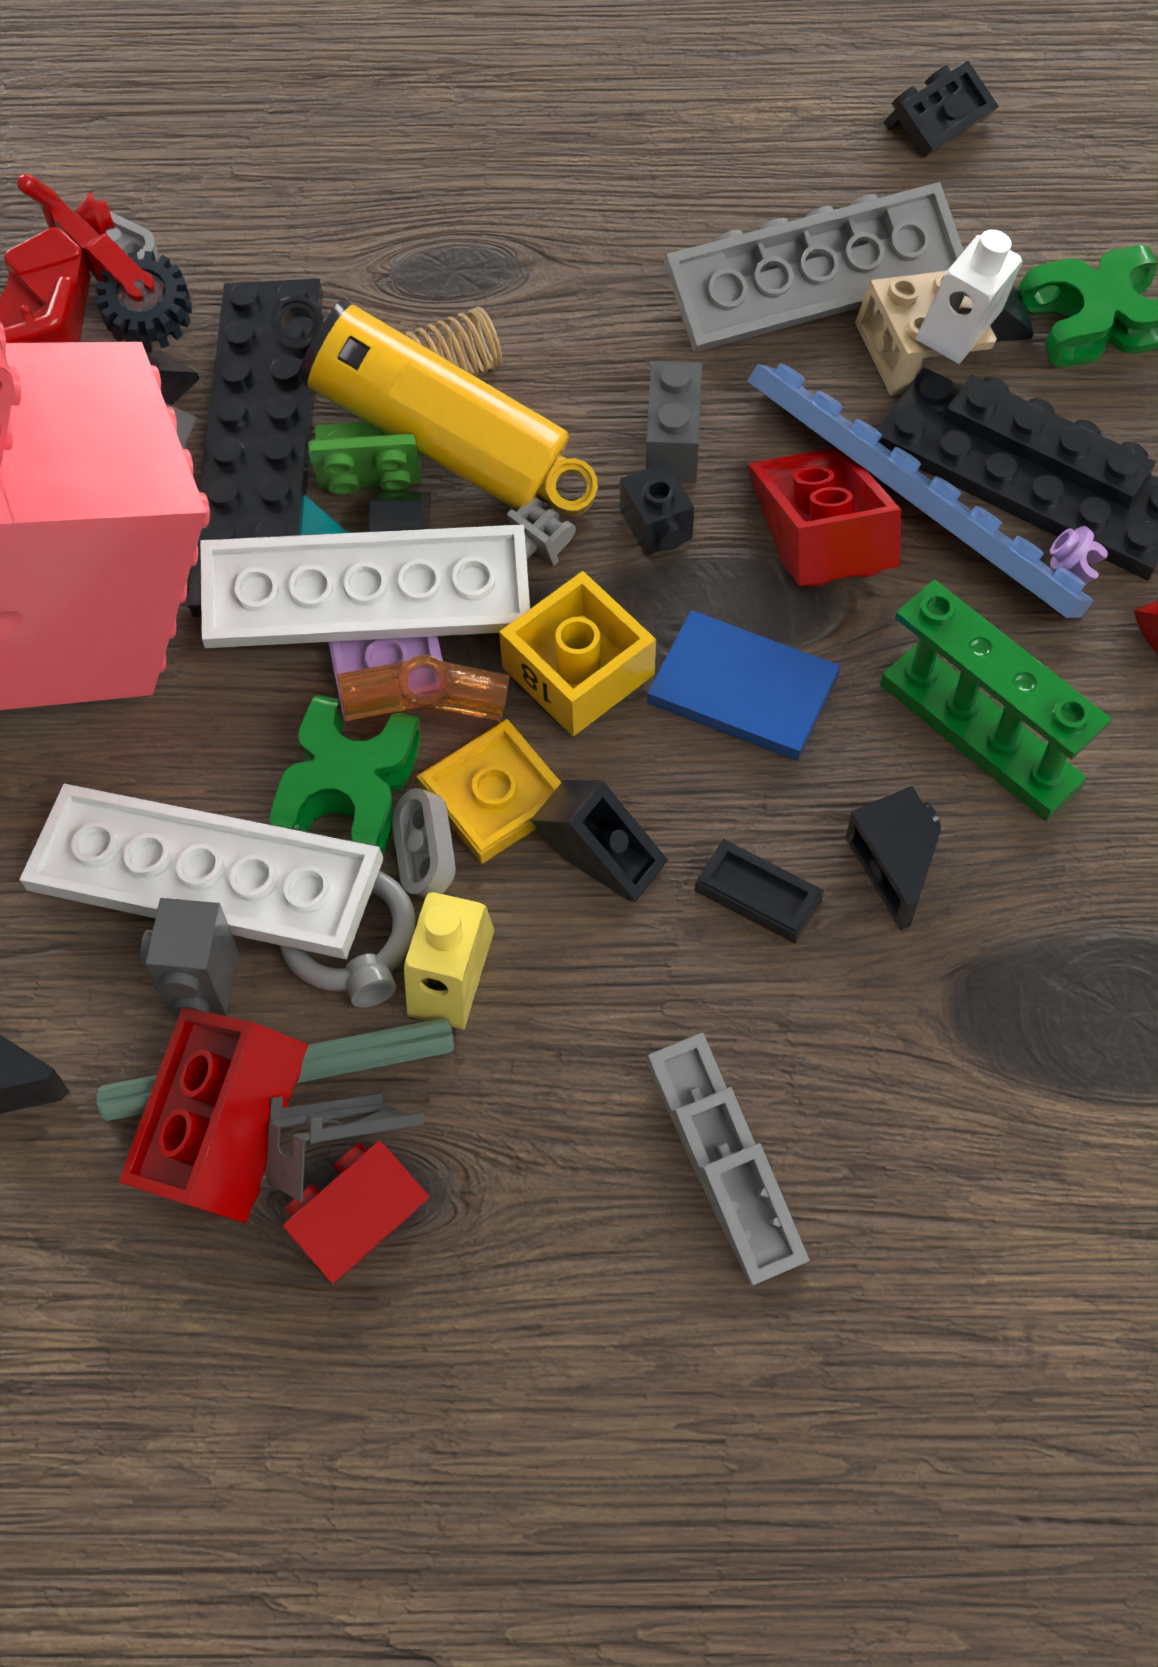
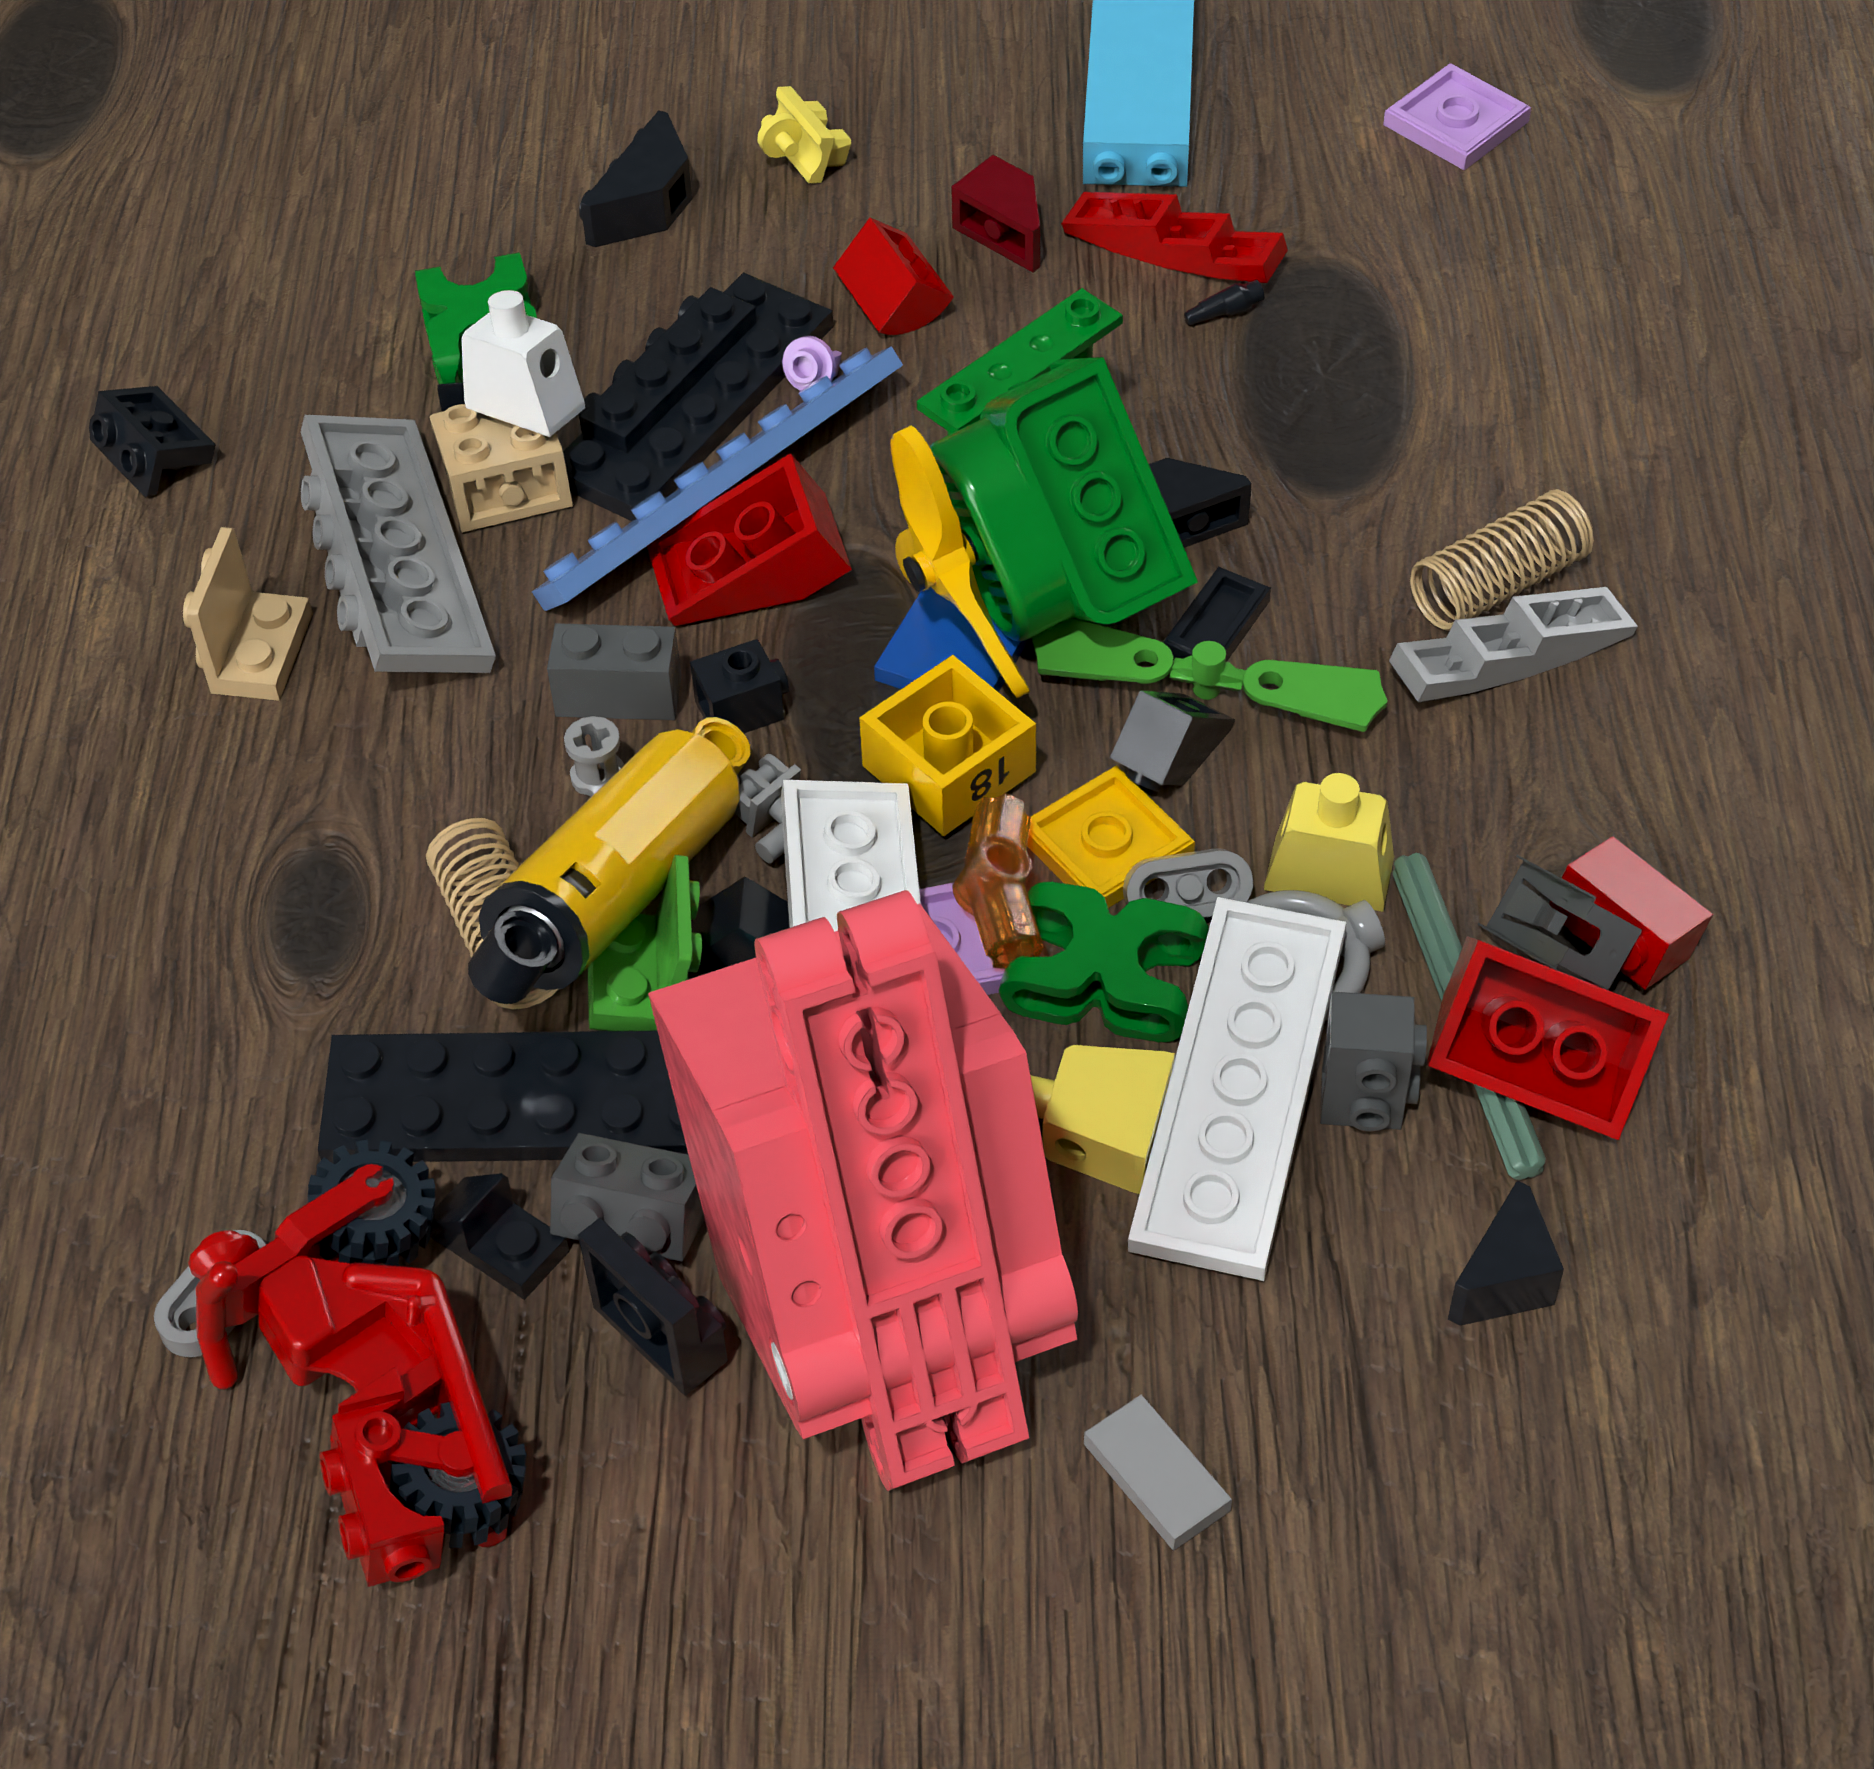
camera: 90 degrees left, 10 degrees down
(190, 763) = (1104, 1111): none -> light yellow torso
(584, 407) = (605, 744): none -> light grey bush
(657, 964) = (1313, 691): none -> bright green piece
(721, 175) = (241, 635): none -> tan bracket
(796, 689) = (1038, 512): none -> green brick
(875, 1216) = (1545, 526): none -> tan piece

